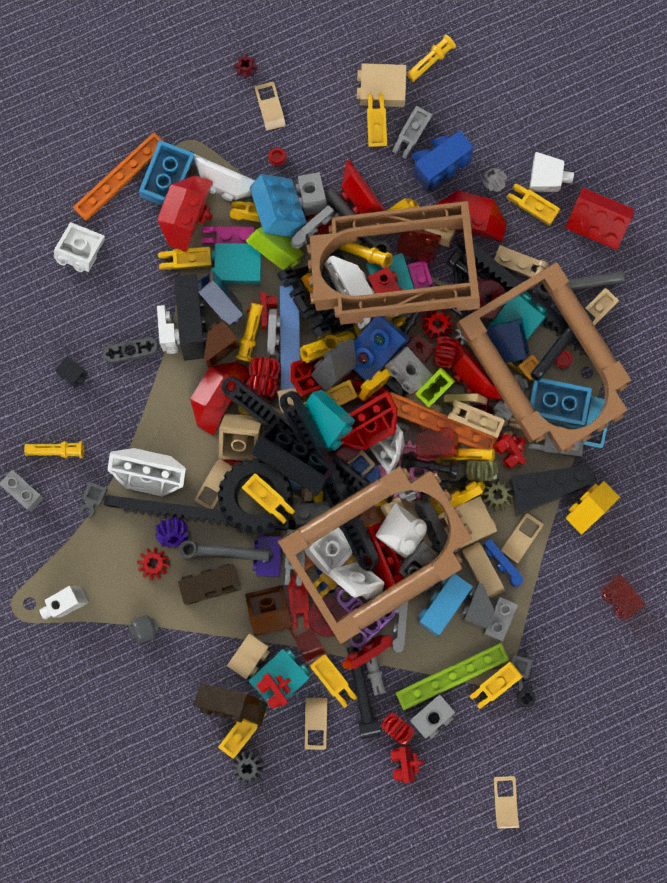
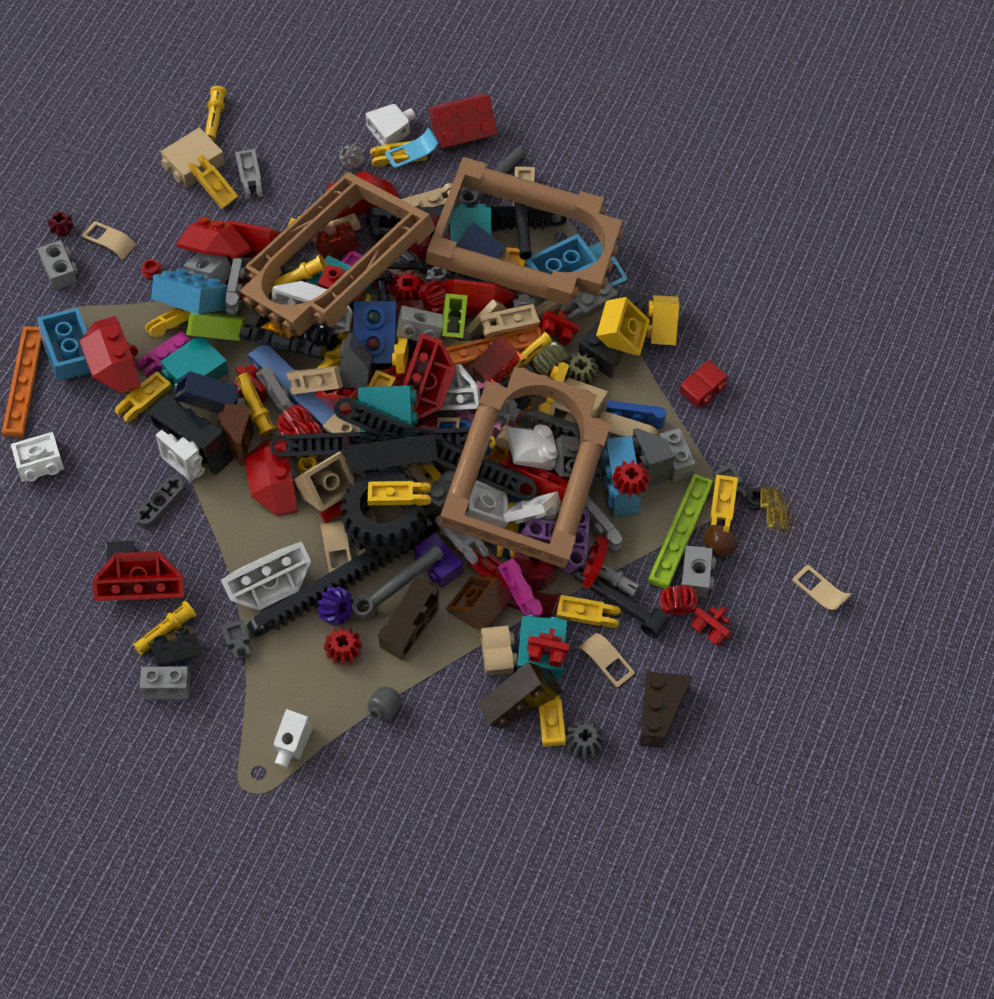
camera: 45 degrees left, 20 degrees down
(47, 471) = (175, 646): none -> black brick
(62, 402) = (138, 577): none -> red wedge
(211, 100) = (57, 265): none -> light grey brick
(225, 181) = (130, 308): white wedge -> none
(297, 354) = (315, 379): none -> tan plate
(299, 629) = (520, 588): none -> dark pink hinge
(316, 791) = (661, 704): none -> dark brown wedge
(328, 176) = (213, 239): none -> red wedge
(443, 161) = (295, 170): blue piece -> none
(444, 622) = (631, 478): none -> red gear
(463, 710) = (721, 542): none -> reddish brown hair
(519, 542) = (631, 392): tan piece -> none
(532, 715) = (776, 509): none -> clear yellow slope
(546, 212) = (416, 149): none -> medium azure piece
(549, 494) = (623, 326): none -> yellow slope
(564, 360) = (536, 238): red plate -> none
(573, 581) = (704, 384): none -> red brick
(622, 597) = (753, 364): clear red brick -> none

